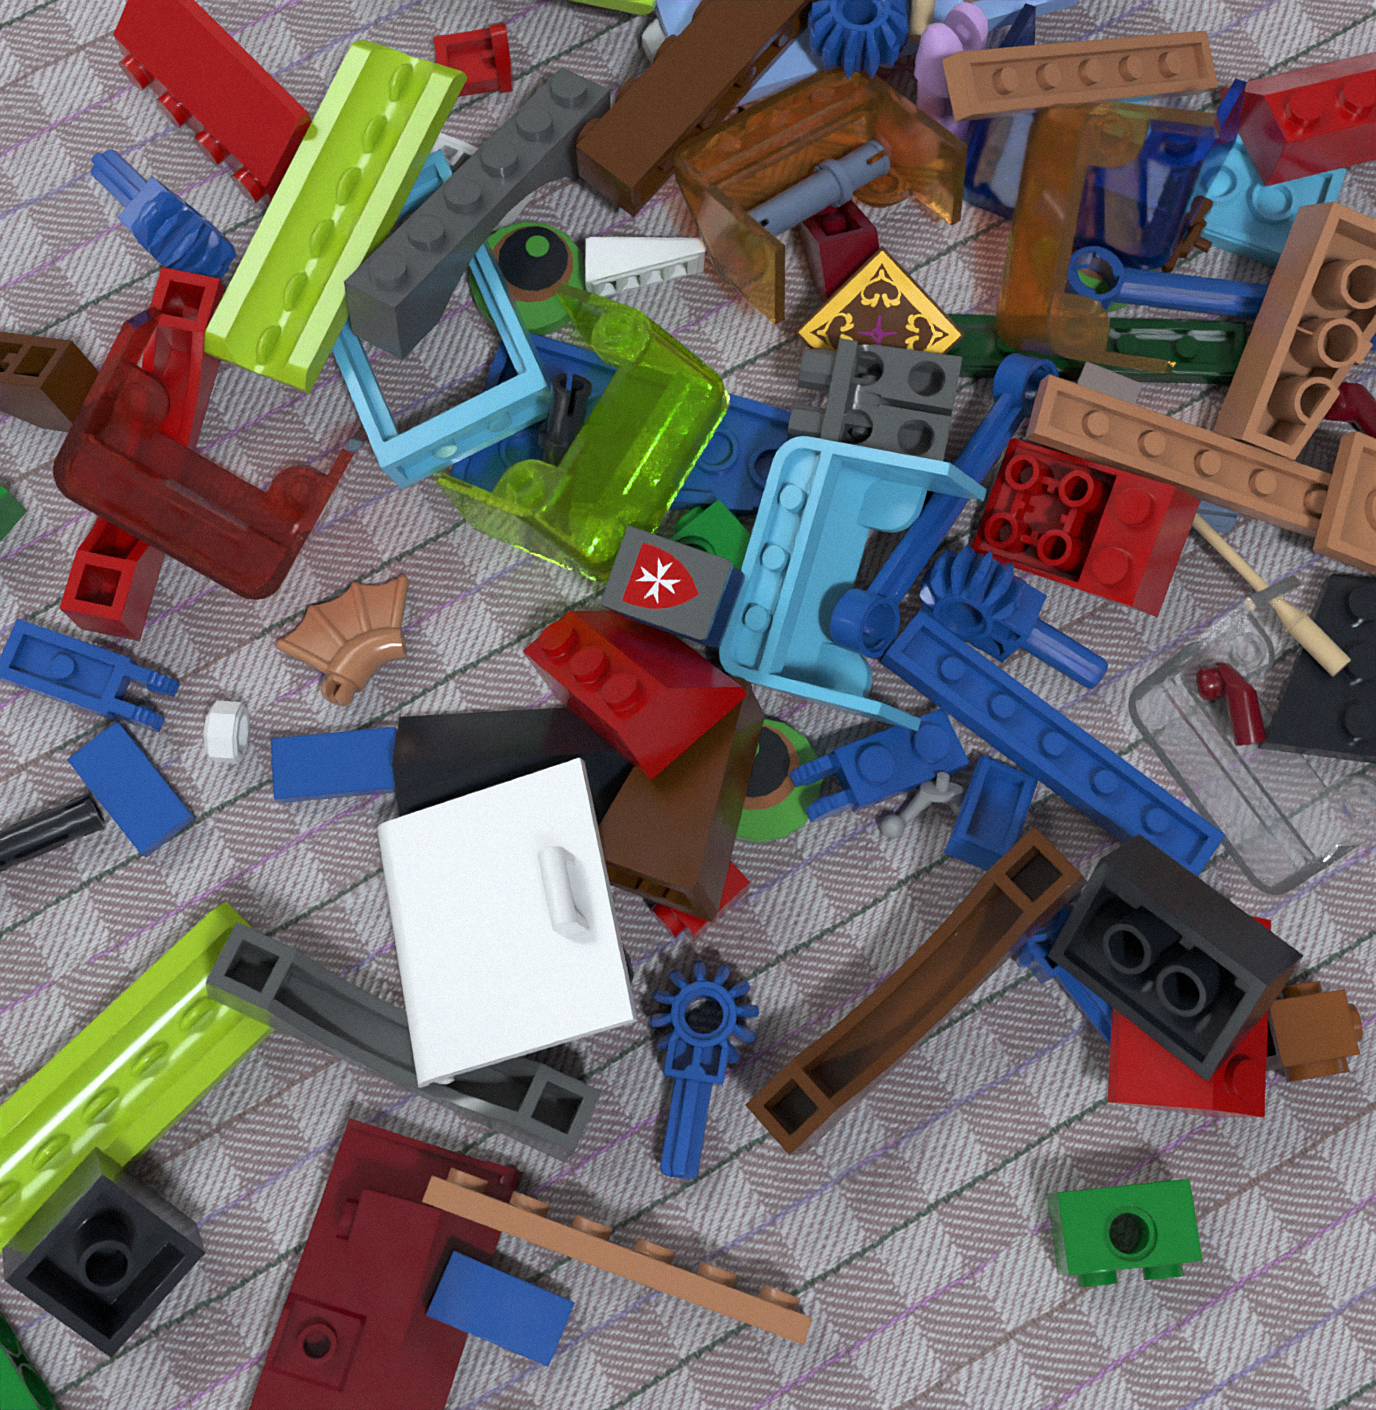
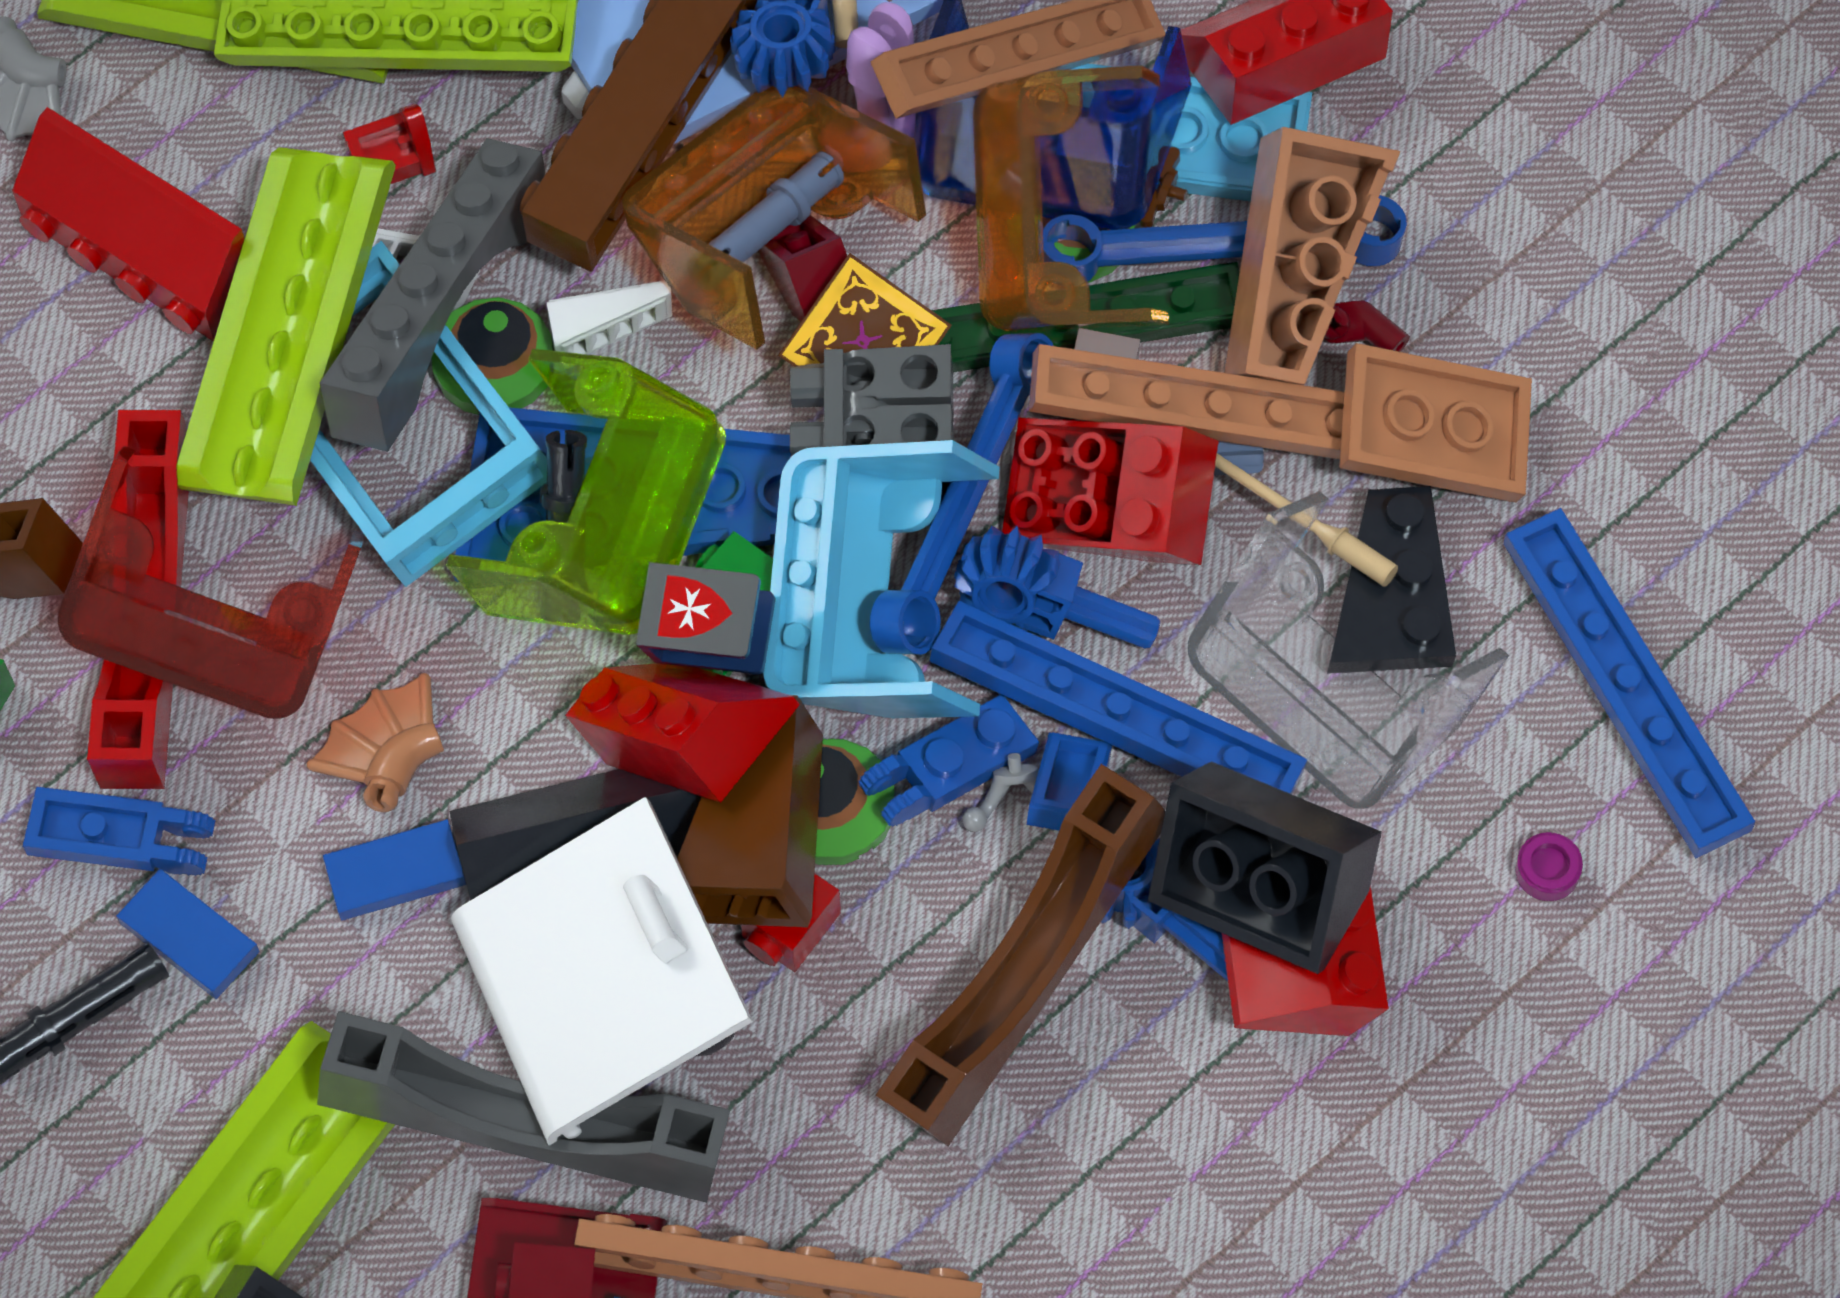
camera: 10 degrees left, 10 degrees down
(163, 220) = (100, 363): blue gear -> none
(226, 732) = (275, 856): white tile -> none
(696, 1061) = (820, 1072): blue gear -> none
(1164, 1224) = (1300, 1120): green brick -> none
(1240, 700) = (1297, 627): dark red arm -> none
(1312, 1032) = (1424, 930): dark orange brick -> none

